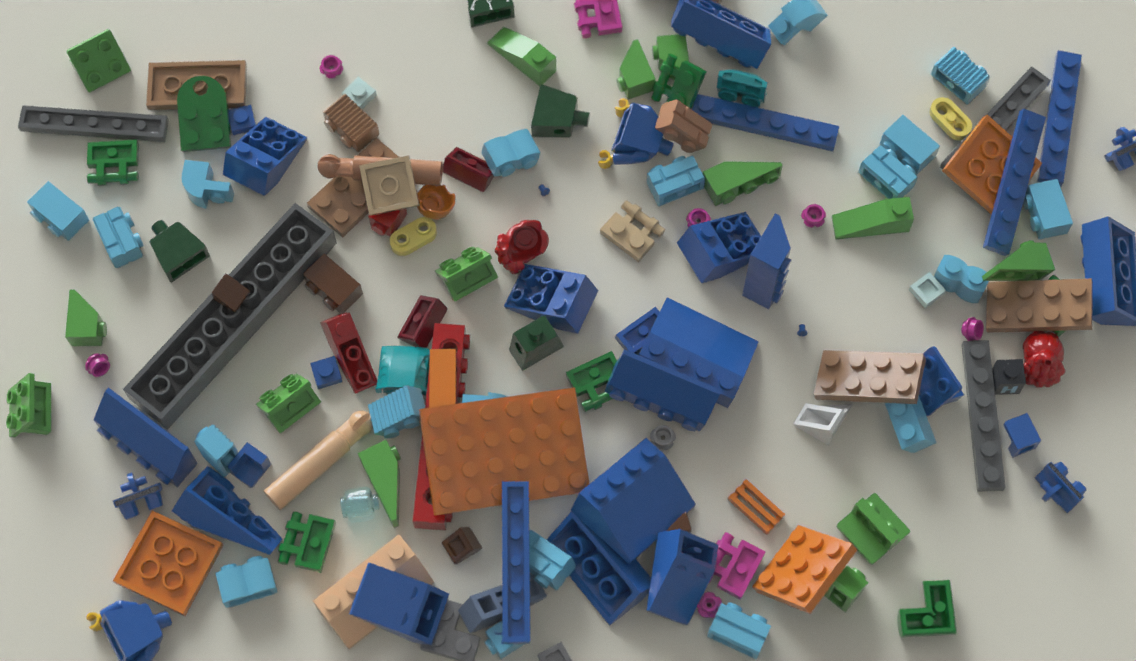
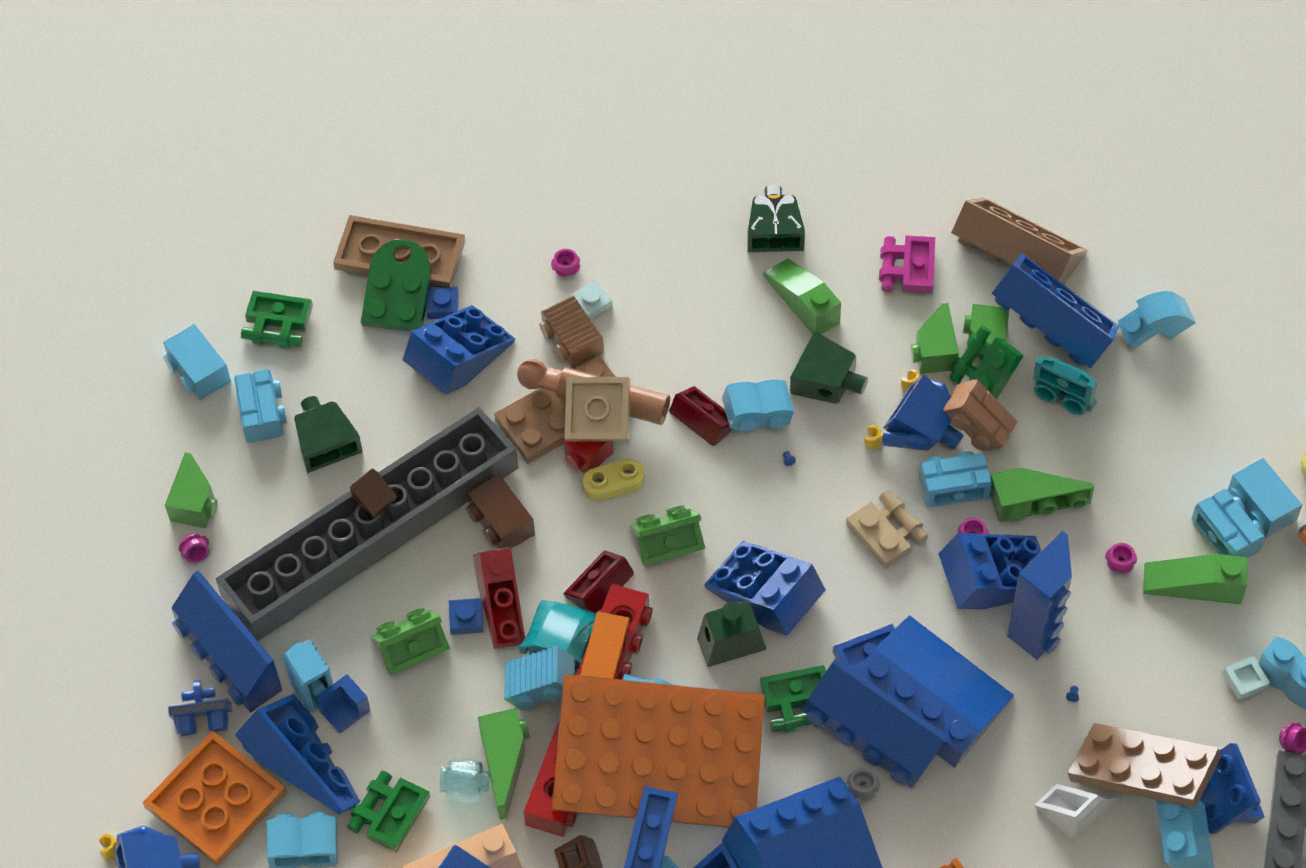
camera: 15 degrees right, 10 degrees down
(29, 407) = (100, 578): bright green bracket -> none
(93, 123) = (266, 271): dark grey plate -> none
(98, 60) = (291, 200): bright green bracket -> none
(199, 186) = (373, 369): medium azure brick -> none
(318, 459) = (428, 716): light nougat piece -> none
(435, 201) = (650, 443): orange hair -> none
(521, 245) = (742, 515): red hair -> none
(766, 122) = (1089, 435): blue plate -> none

